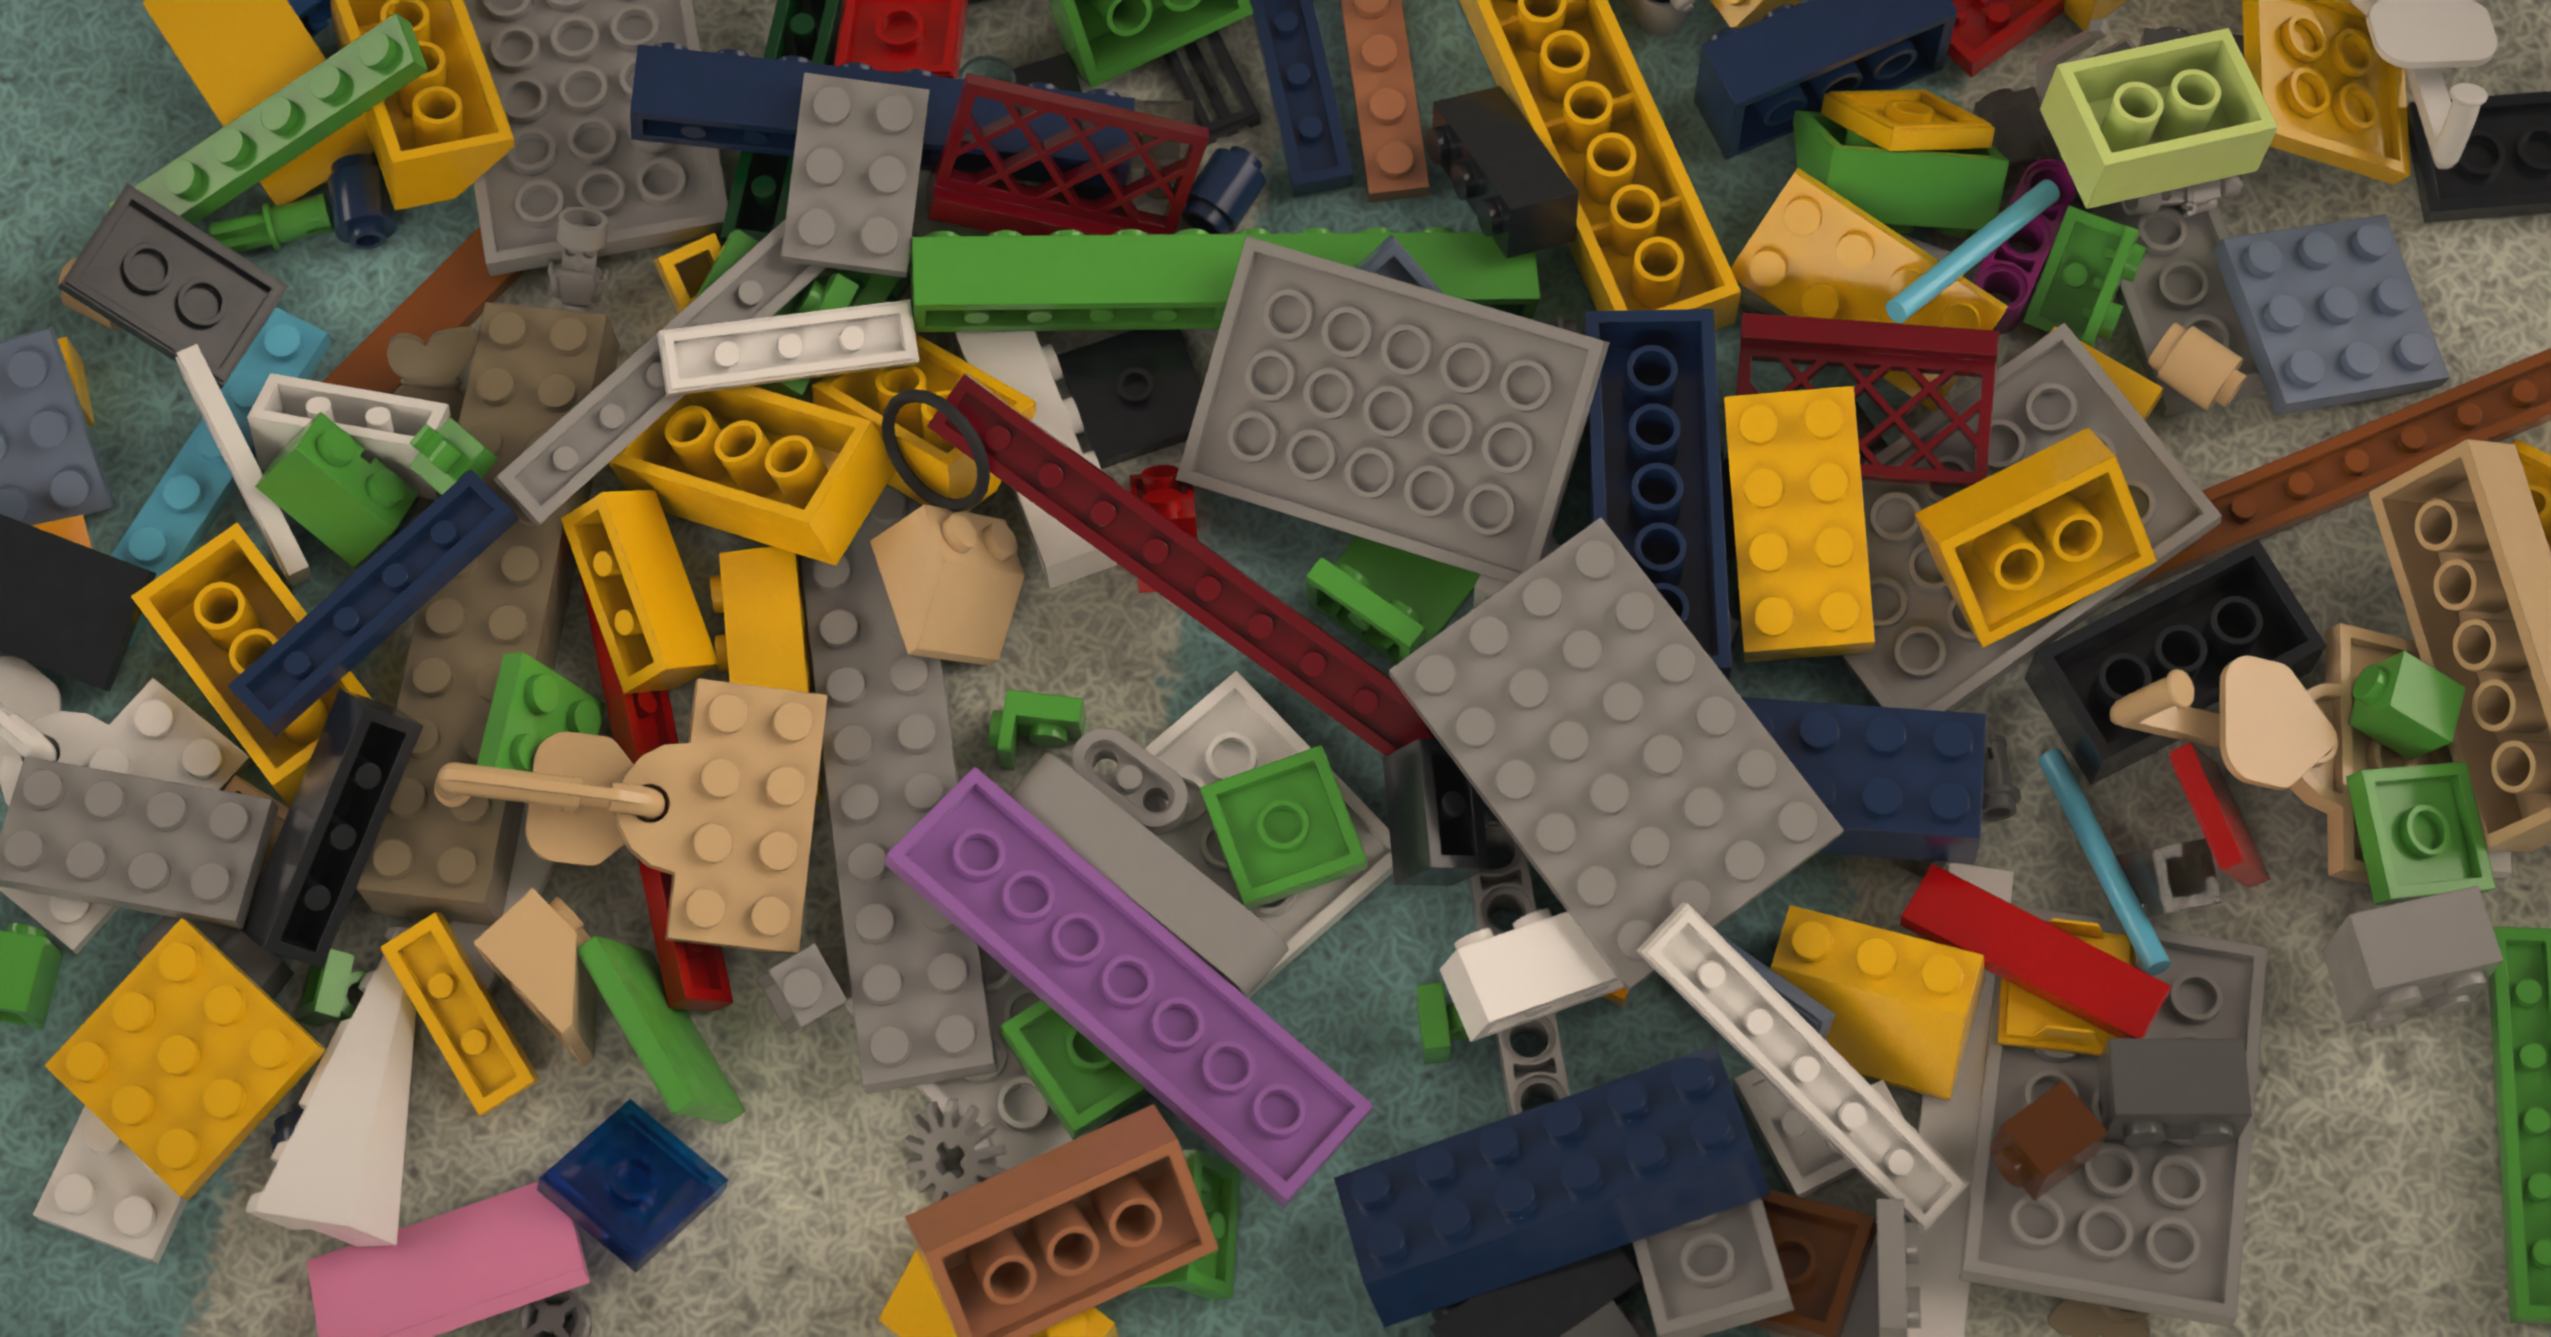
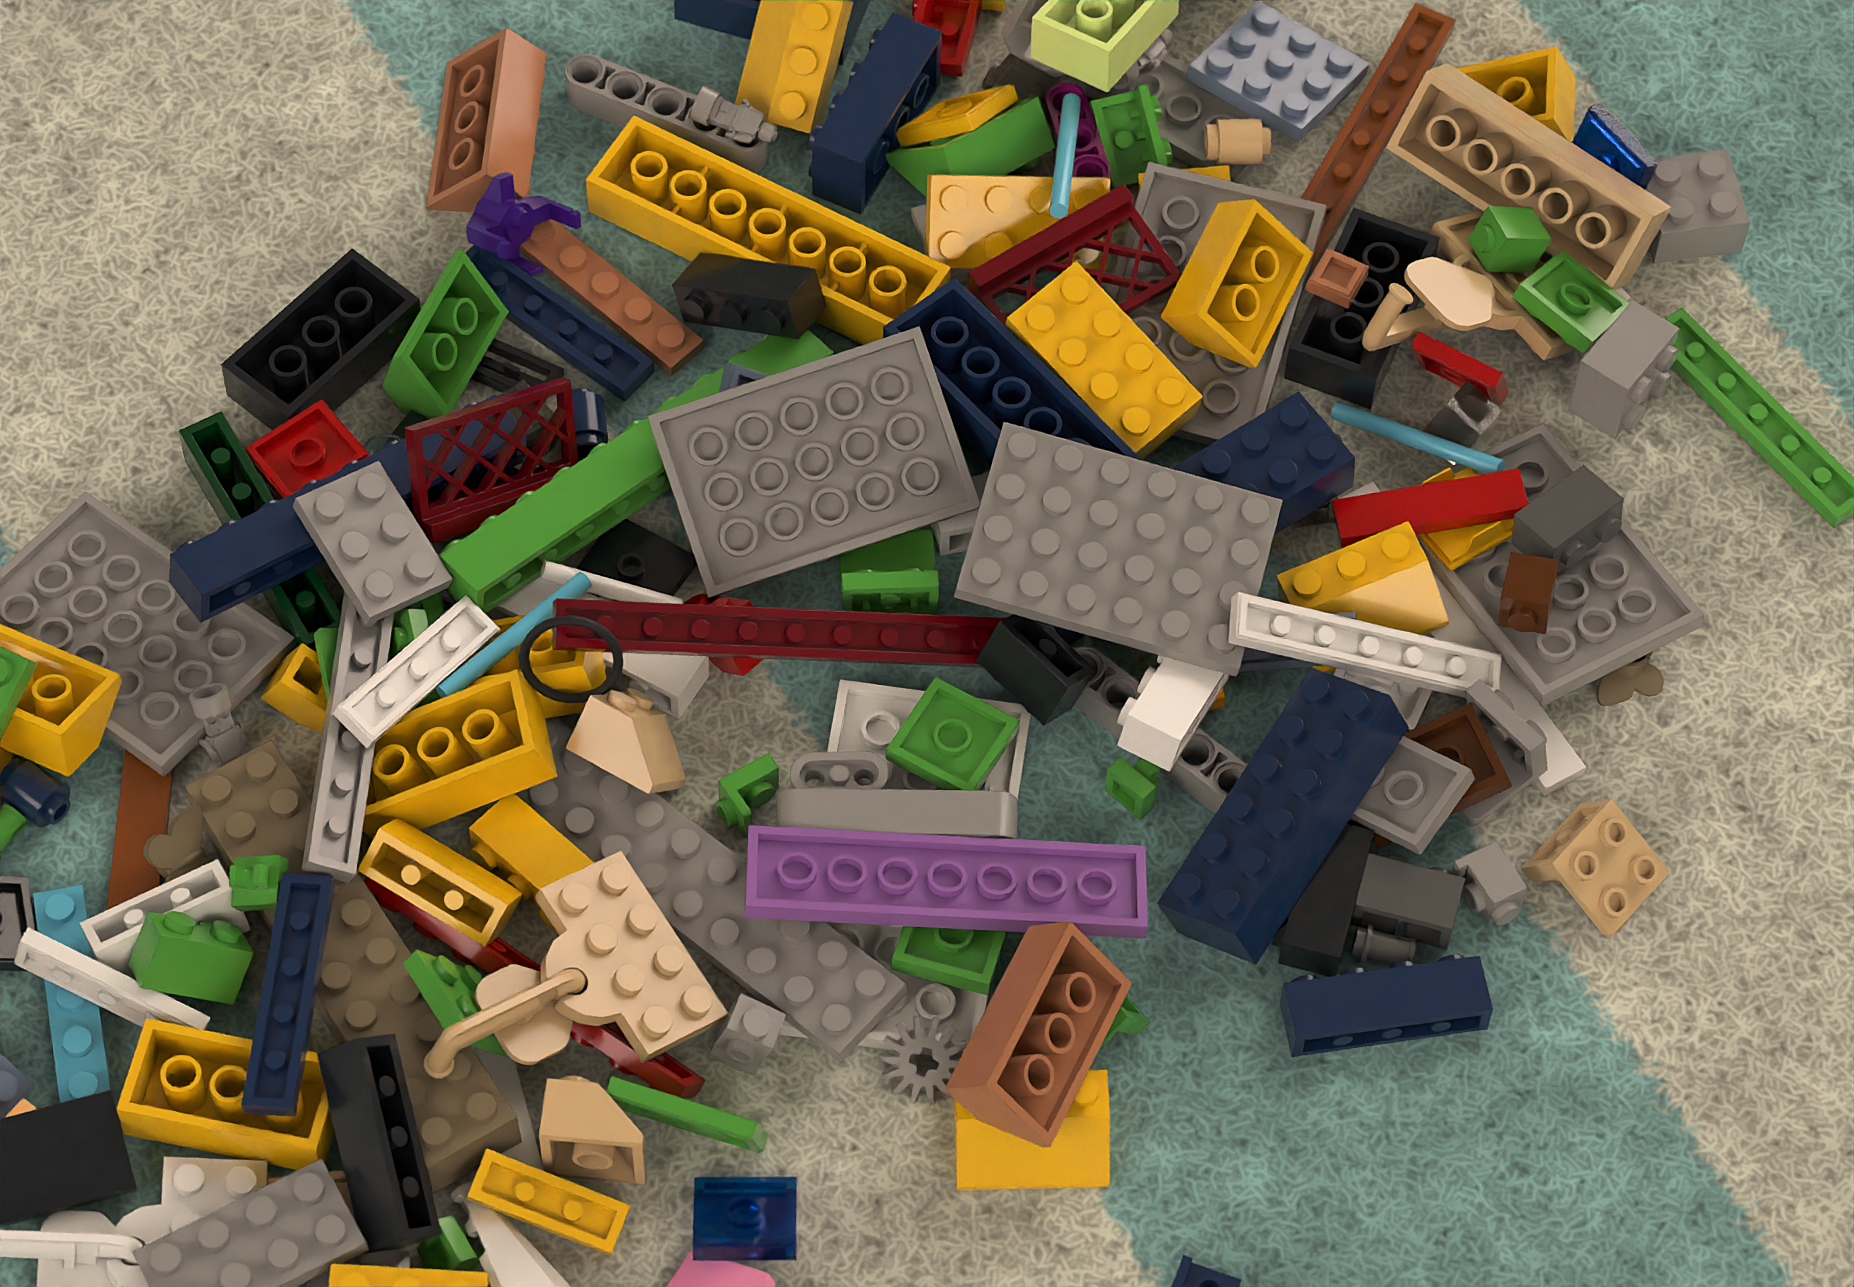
camera: 45 degrees left, 10 degrees down
(928, 379) = (510, 638): none -> medium azure bar
(1082, 397) = (605, 586): none -> white bar
(2160, 610) = (1337, 278): none -> nougat tile

